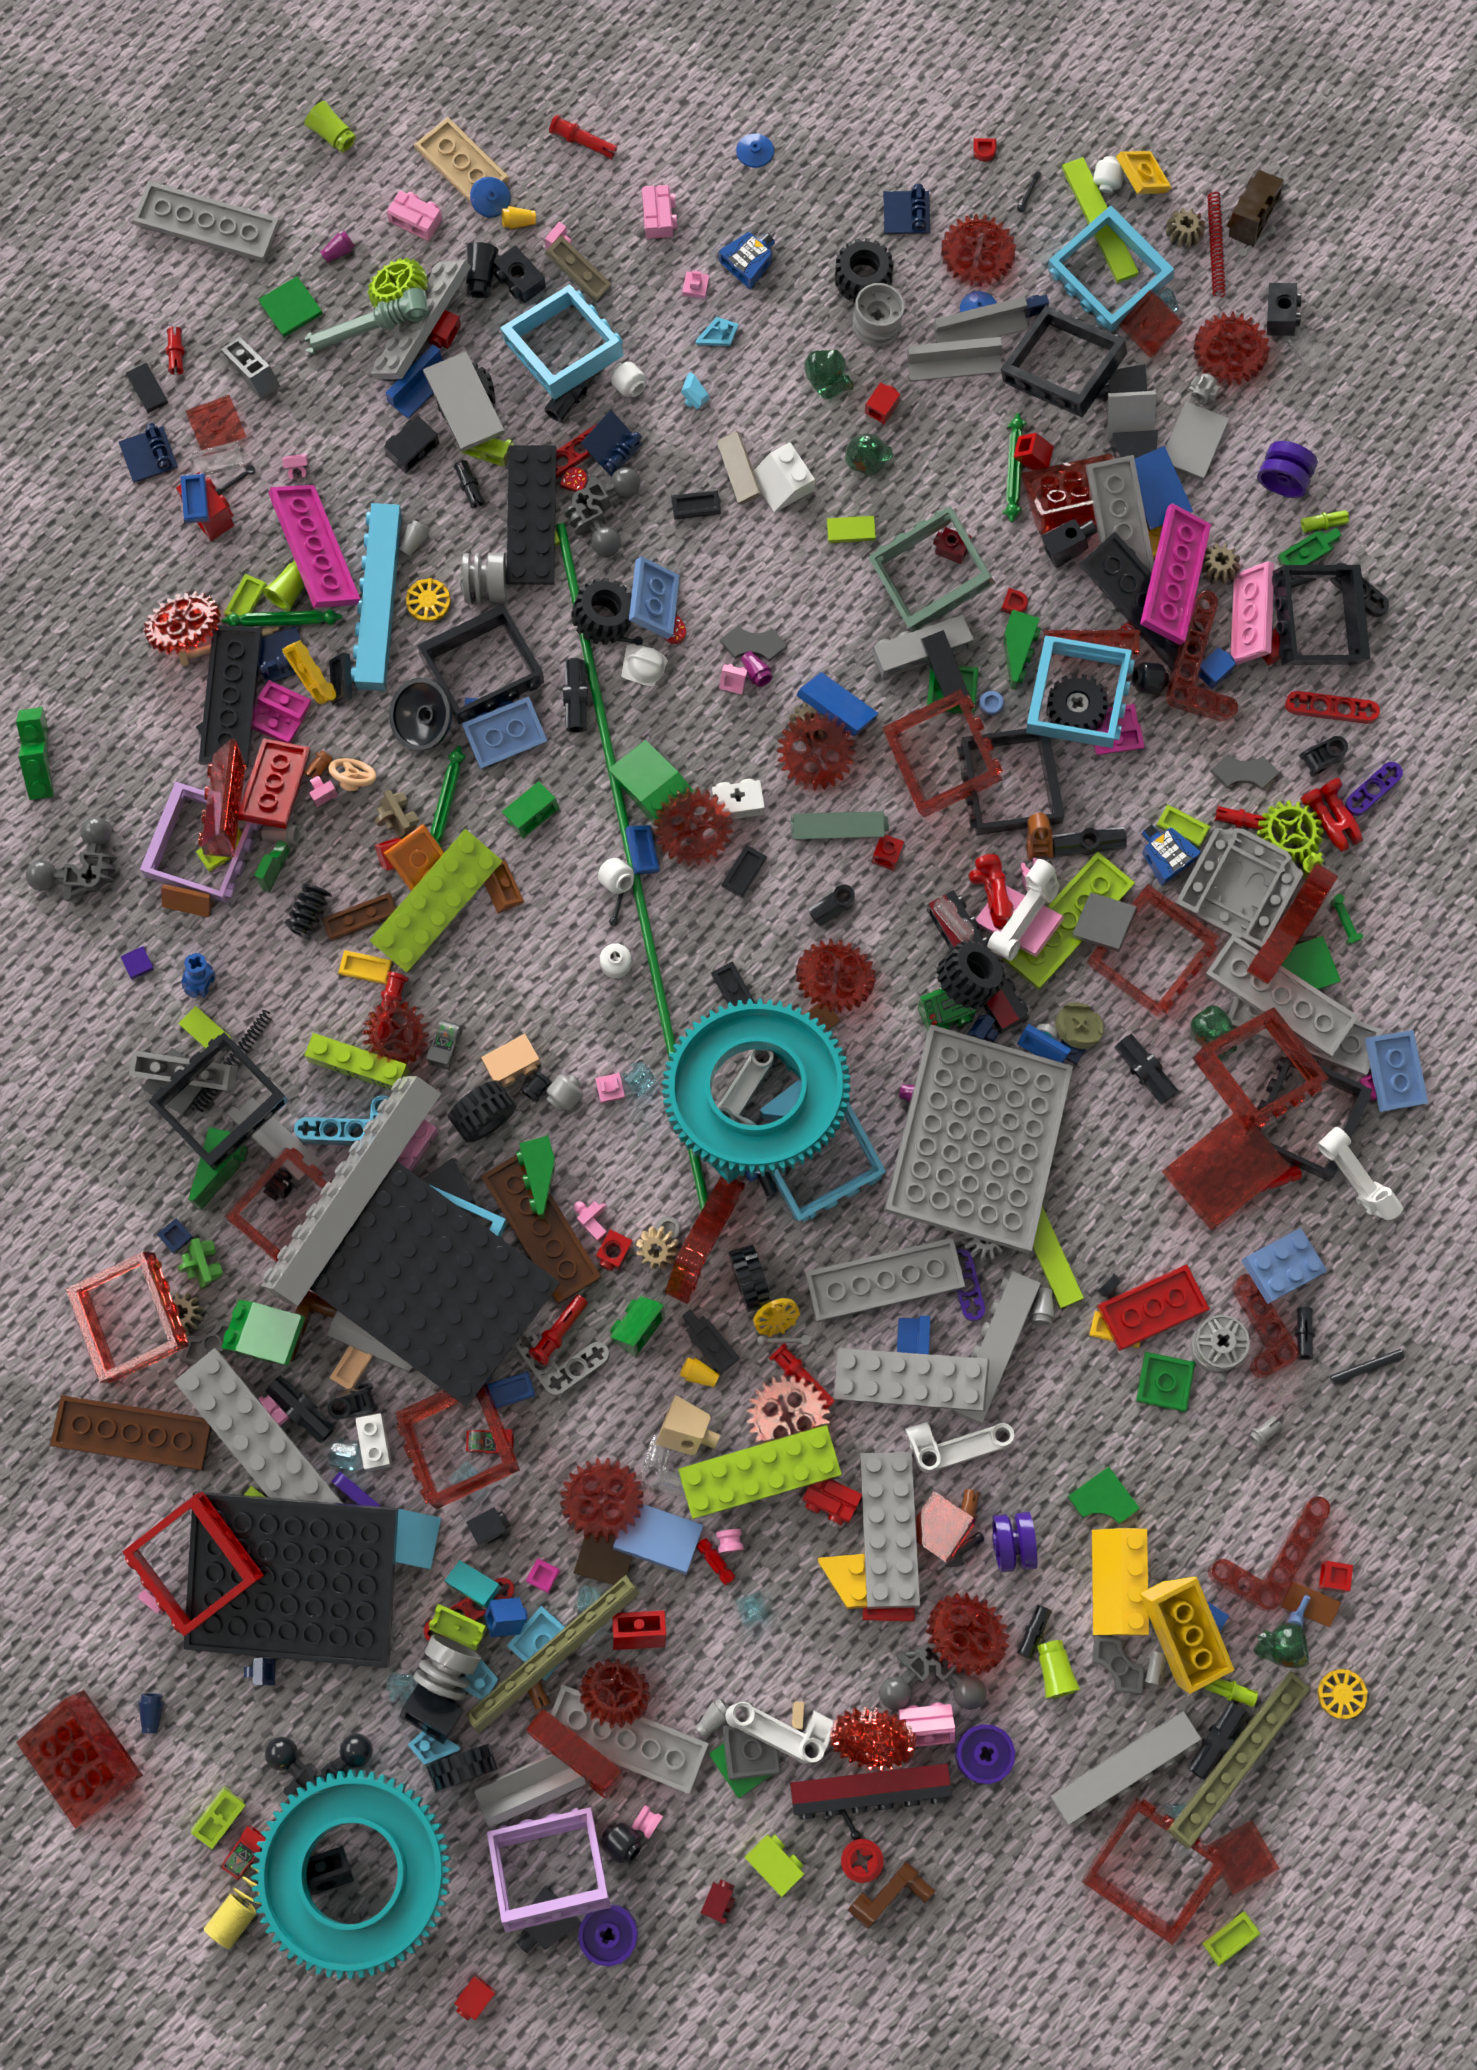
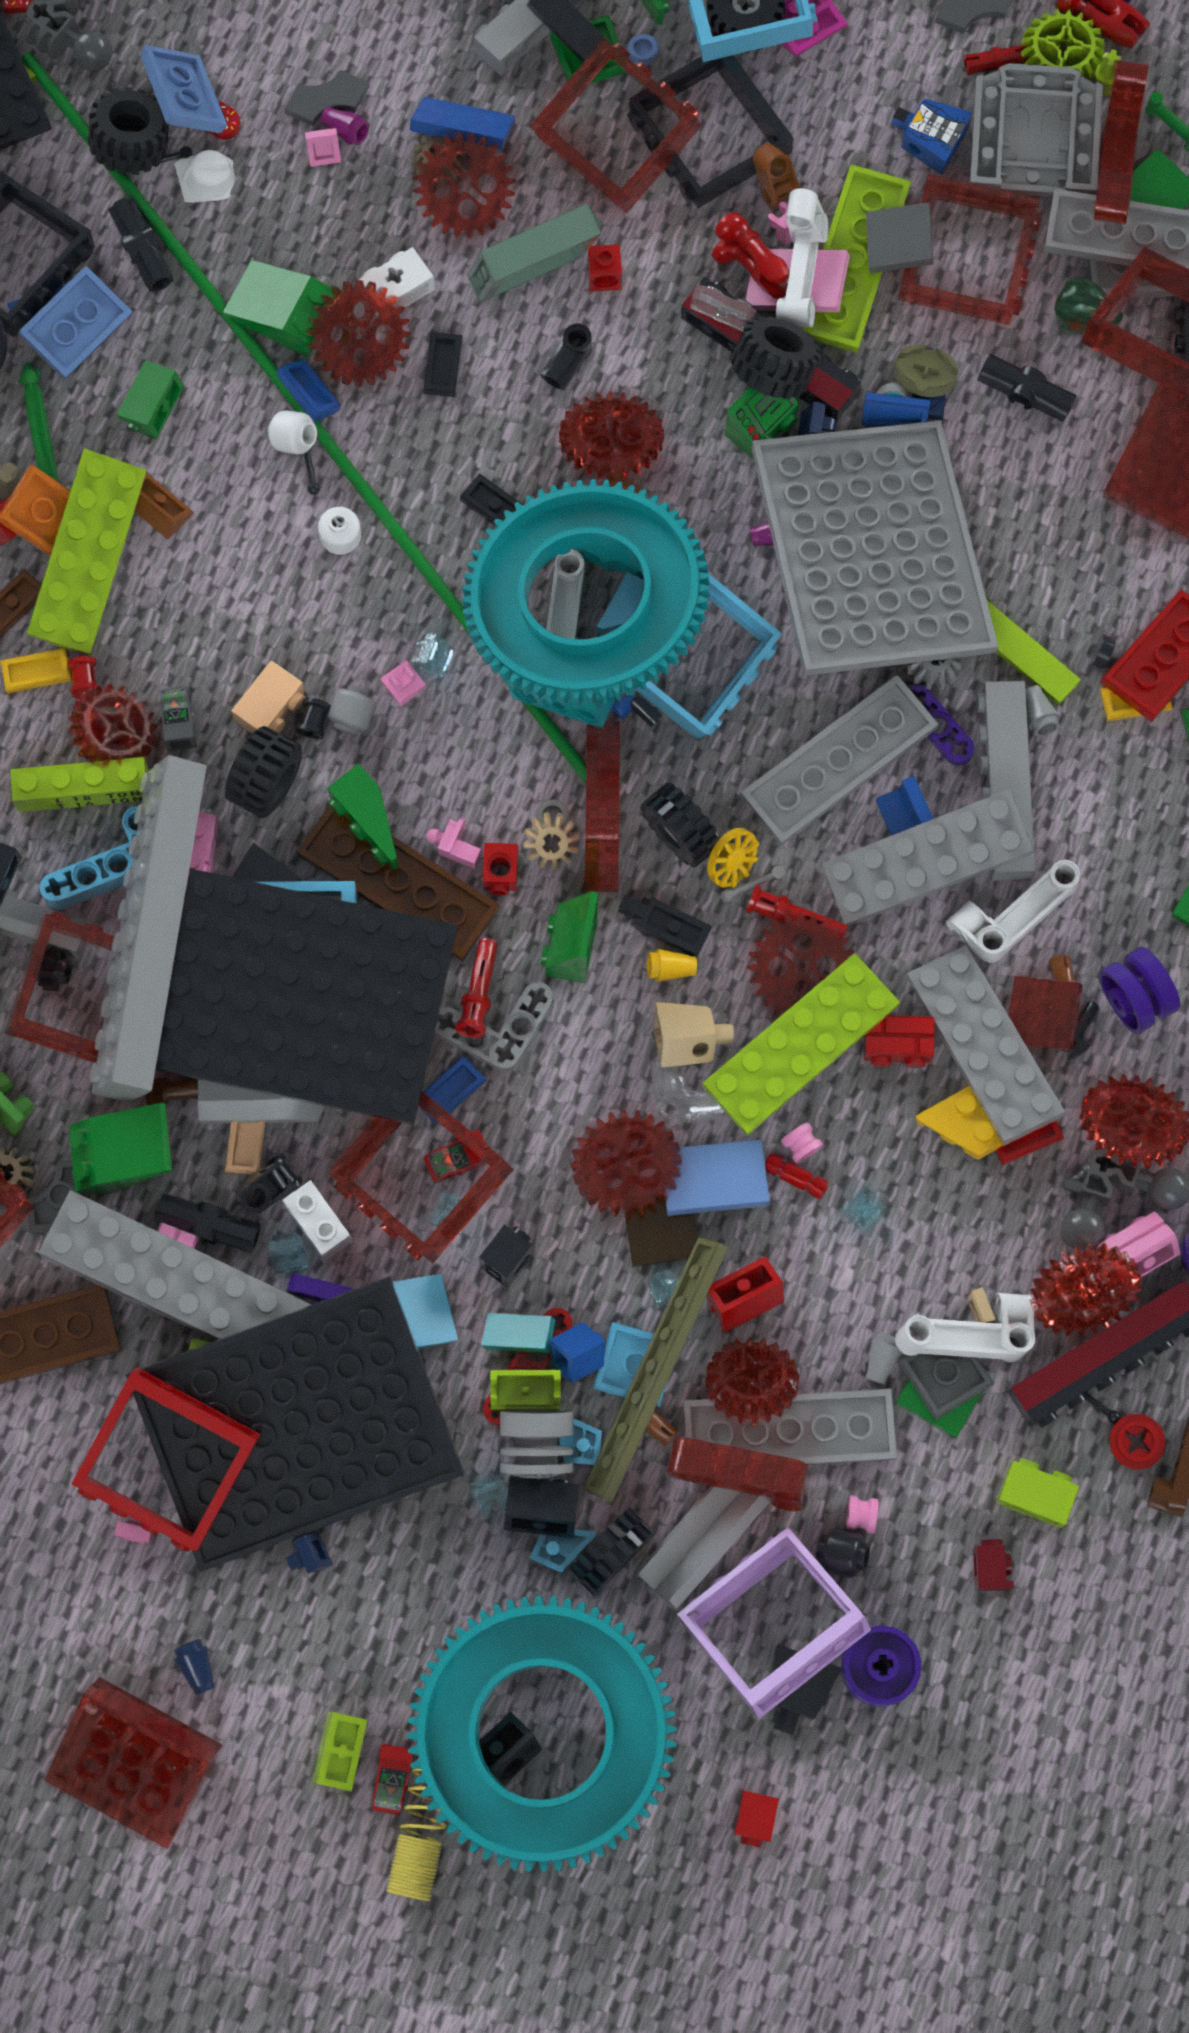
camera: 25 degrees left, 0 degrees up
(283, 1755) = (383, 1638): black piece -> none
(543, 1575) = (597, 1286): dark pink tile -> none
(1103, 840) = (848, 149): black piece -> none
(1187, 826) = (944, 92): lime tile -> none

